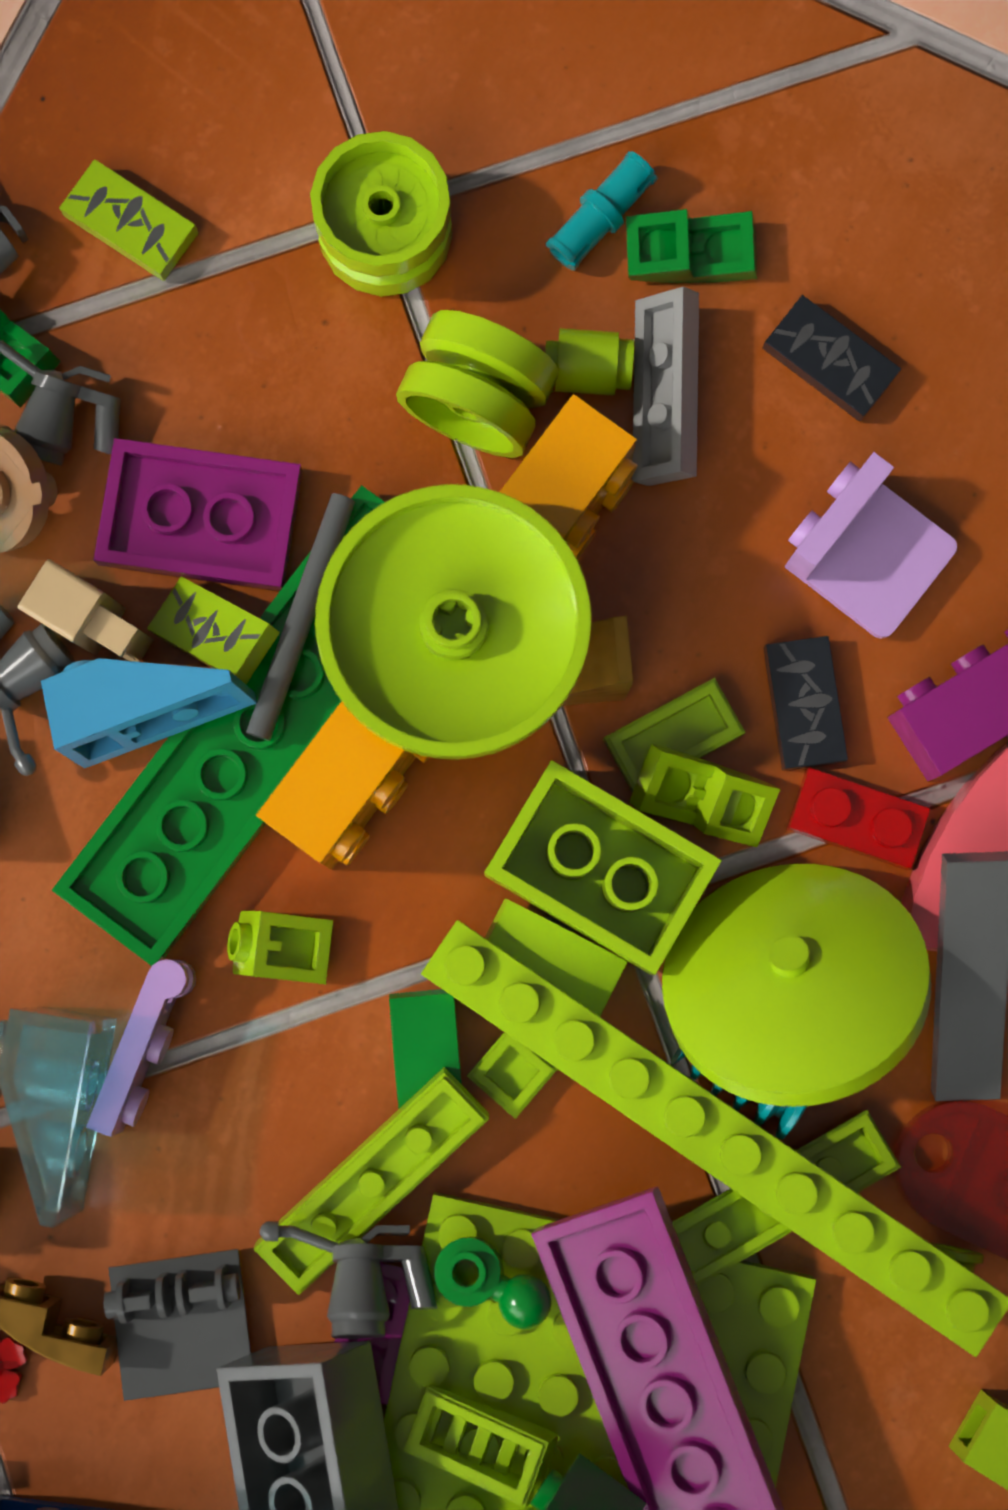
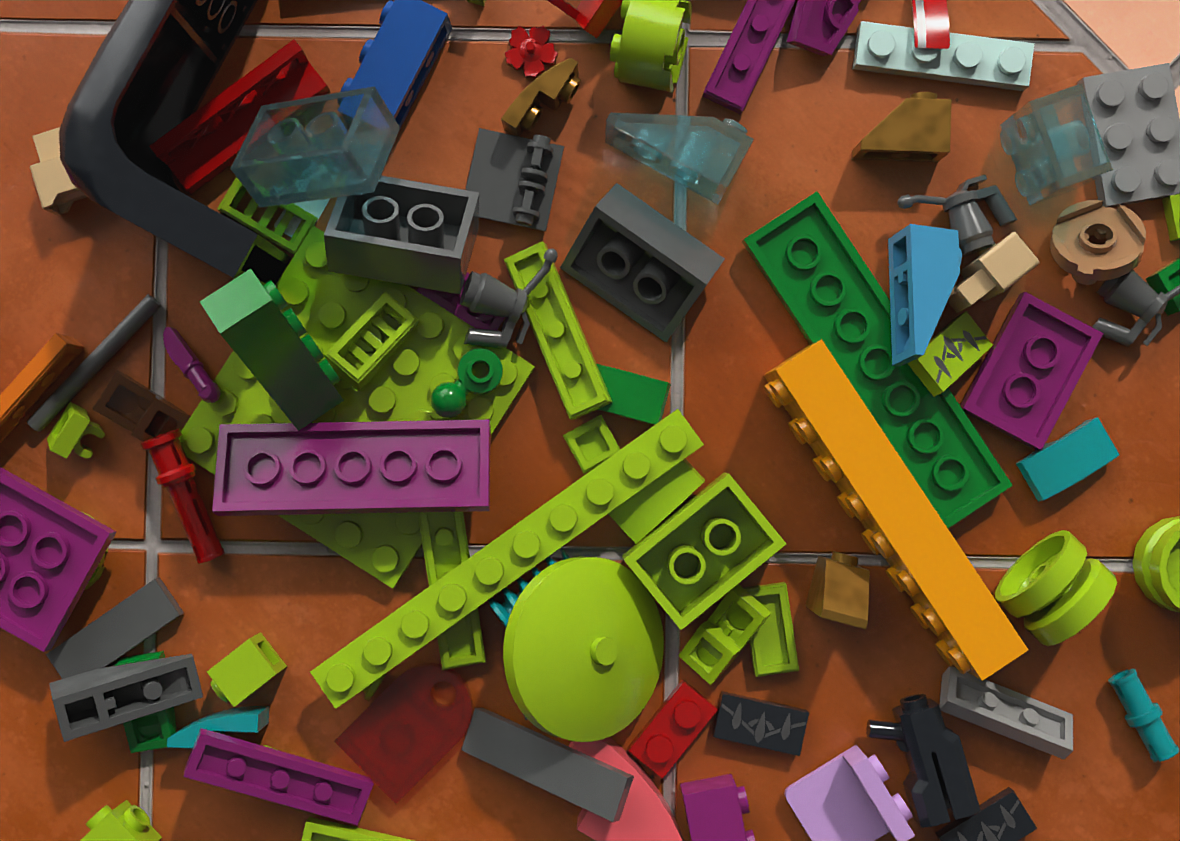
camera: 115 degrees right, 5 degrees up
(142, 1043) = (697, 215): lavender plate -> none
(234, 1099) = (641, 262): none -> dark grey slope
(280, 946) = (726, 325): lime bracket -> none
(299, 619) = (939, 414): dark grey bar -> none
(300, 424) = (1068, 459): none -> teal slope
(453, 621) = (906, 514): lime dish -> none
(592, 361) = (1041, 669): lime brick -> none
(691, 250) = (1093, 766): green slope -> none
(764, 456) = (935, 759): none -> black piece

